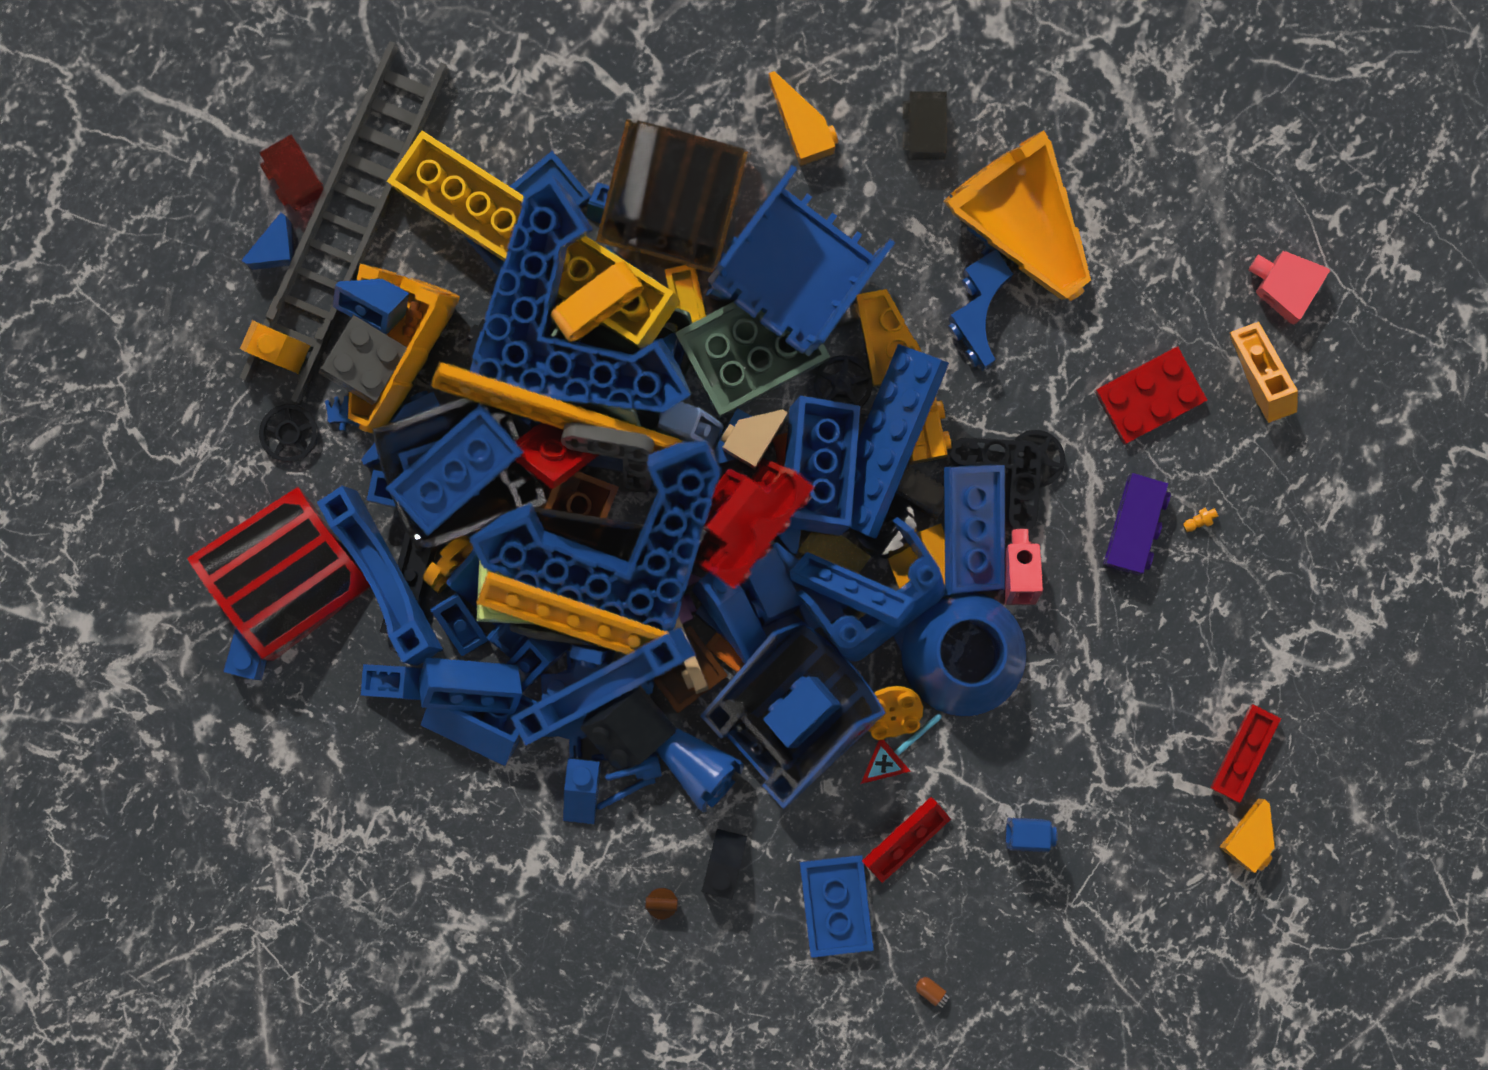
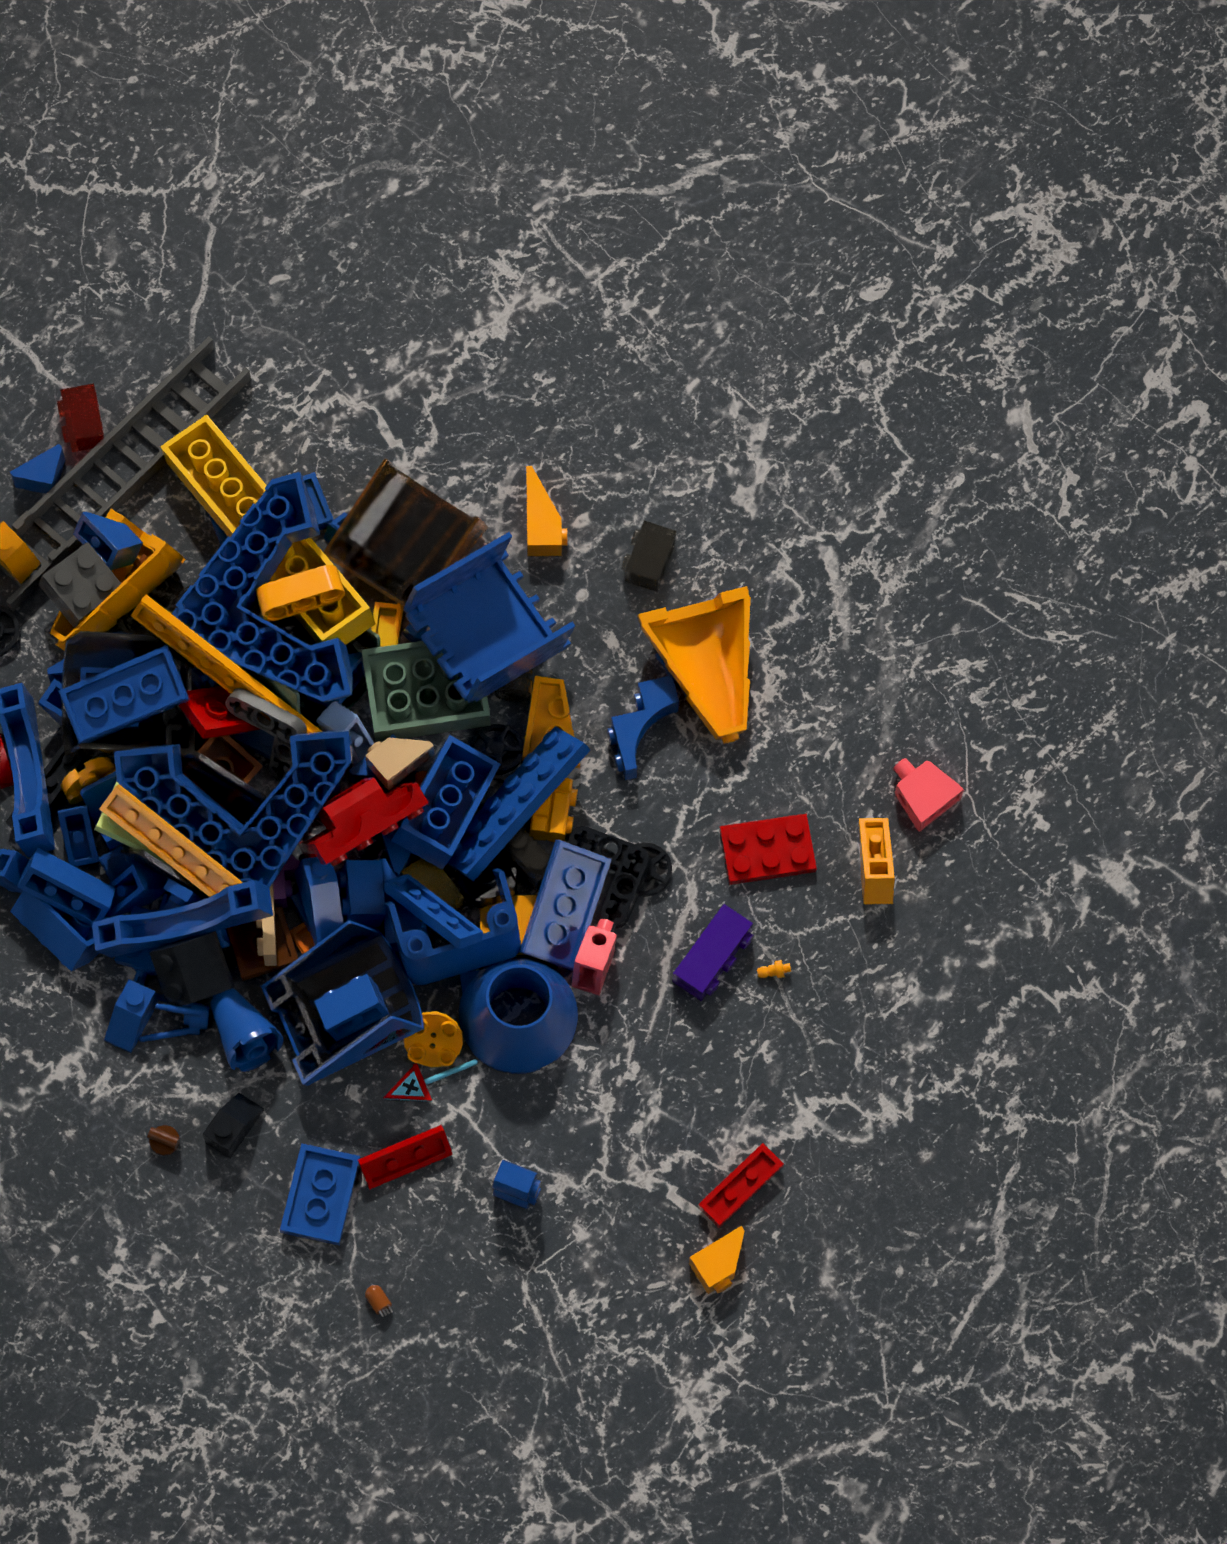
camera: 15 degrees right, 15 degrees down
(339, 413) = (42, 630): blue piece -> none

